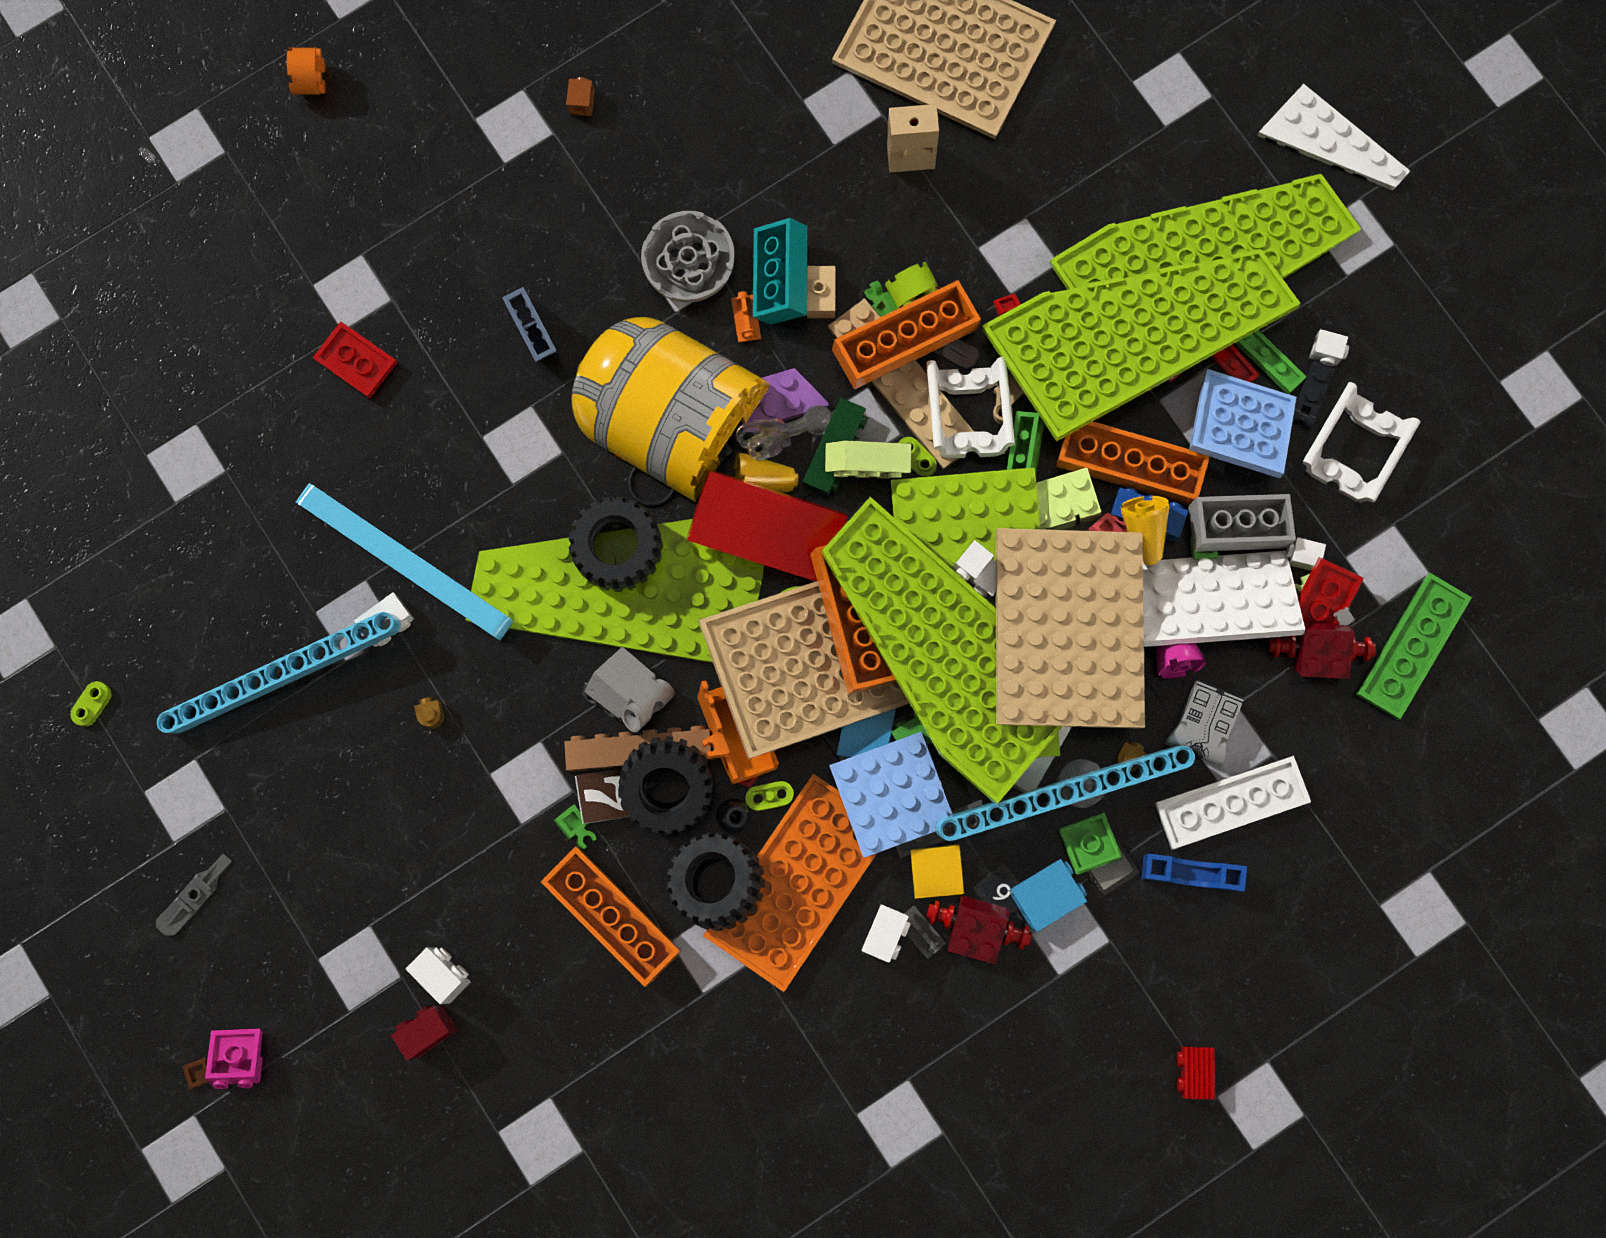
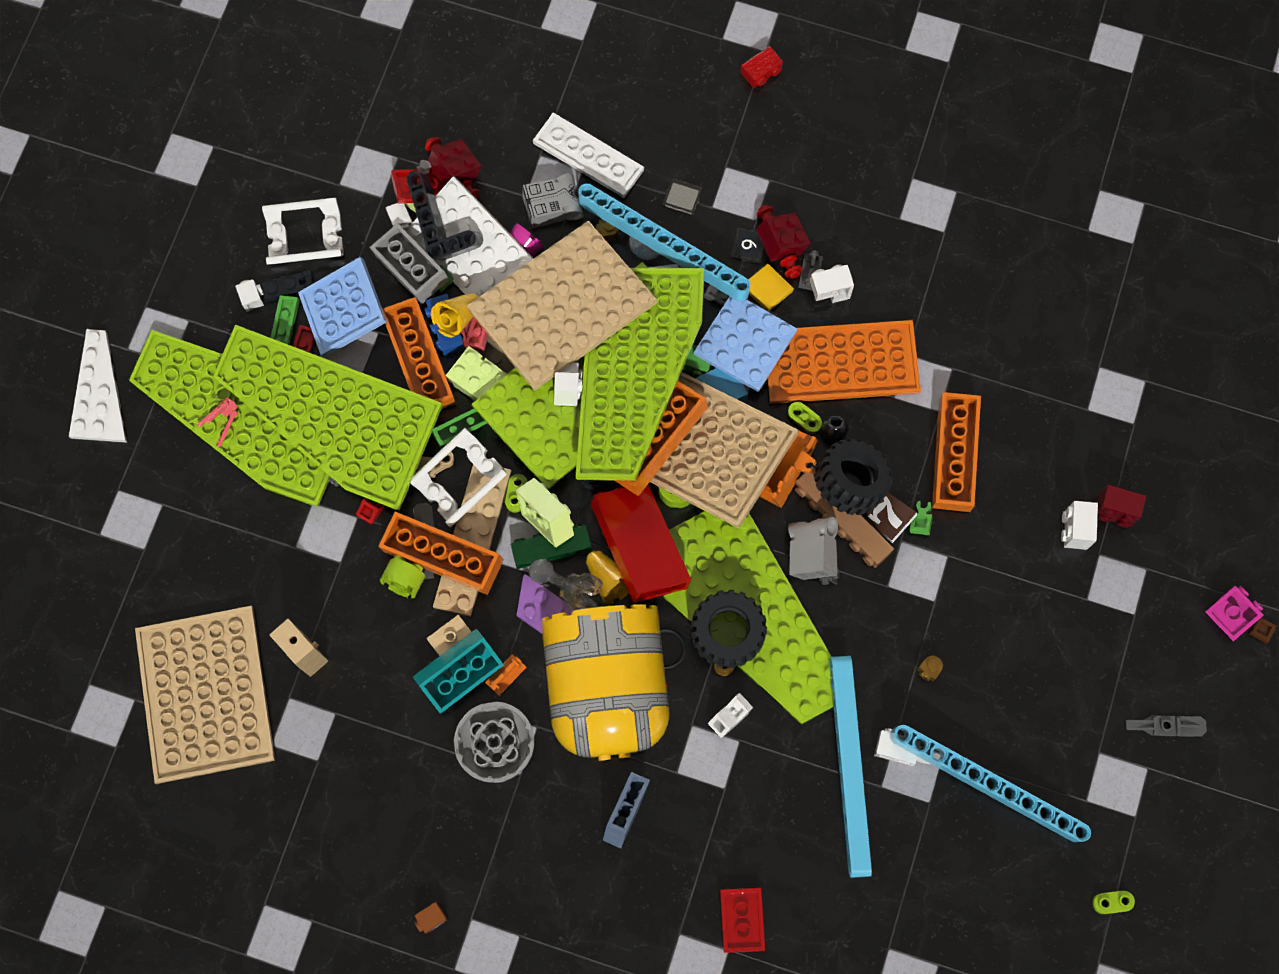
camera: 135 degrees left, 5 degrees down
(538, 487) = (730, 715): none -> white brick
(694, 860) = (909, 396): black tyre -> none
(882, 301) = (428, 591): bright green plate -> none
(1048, 895) = (729, 215): dark azure brick -> none
(1090, 844) = (678, 215): bright green plate -> none
(1194, 873) = (655, 156): blue arch -> none
(1217, 239) = (226, 408): none -> coral plant
(1270, 572) = (435, 222): none -> black beam
(1413, 646) = (410, 121): bright green plate -> none

